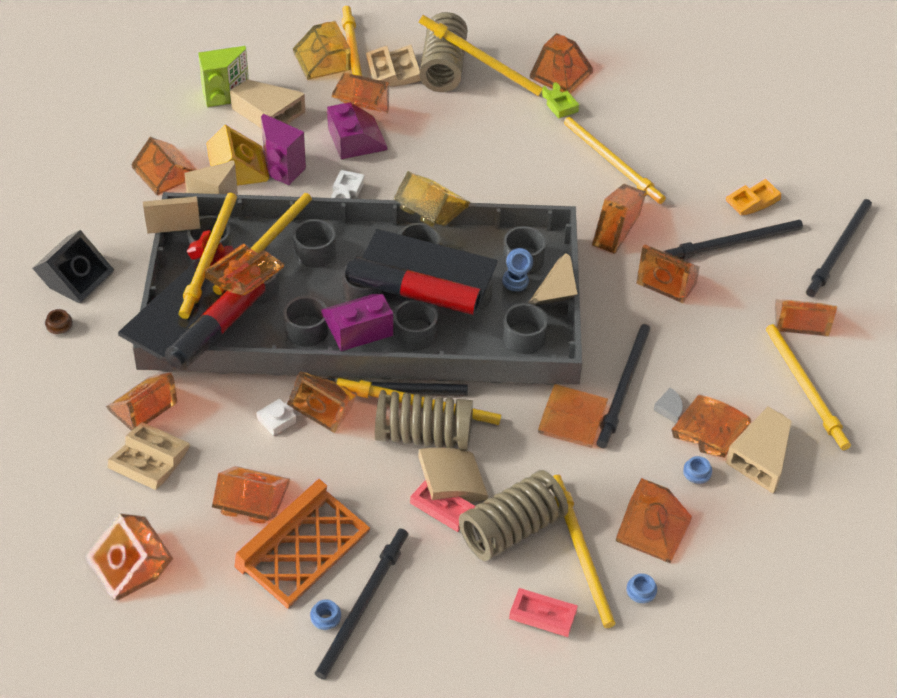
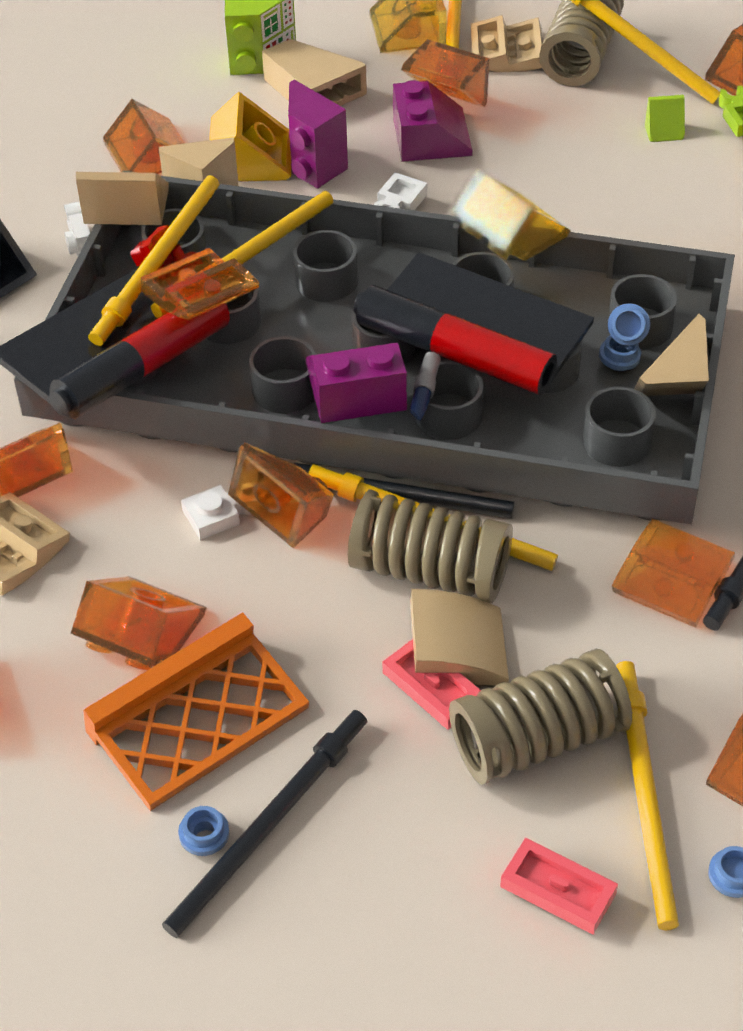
camera: 15 degrees right, 0 degrees up
(138, 239) = (78, 231): none -> white plate
(402, 318) = (425, 385): none -> piece
(510, 111) = (665, 118): none -> lime slope

